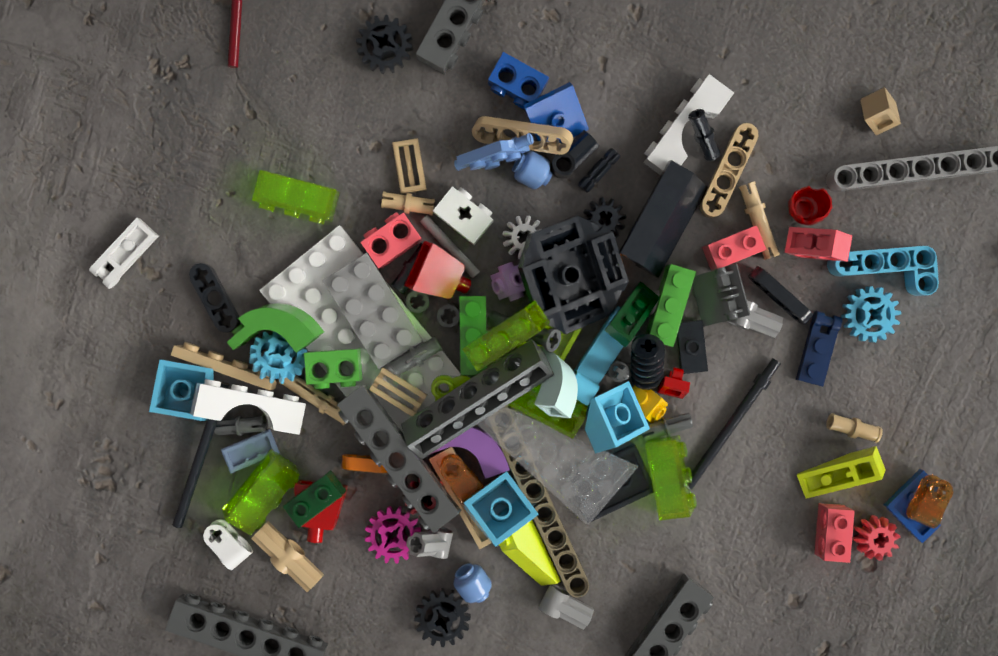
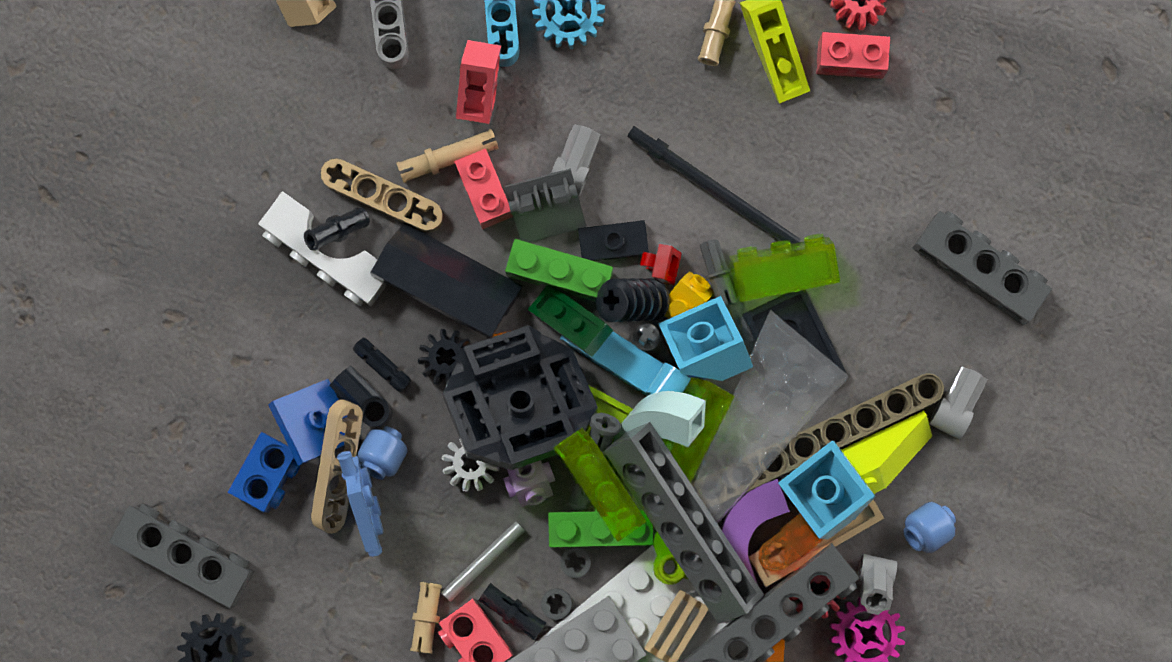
camera: 90 degrees left, 5 degrees down
(400, 366) = (640, 625): dark grey pin -> none
(406, 143) = (406, 612): tan tile -> none
(437, 273) = (518, 577): torso -> none
(449, 209) = (460, 535): white brick -> none
(452, 613) = (982, 581): black gear -> none
(780, 295) = (545, 127): black beam -> none
(809, 205) = (428, 92): red hair -> none
(818, 349) = (614, 77): dark blue plate -> none

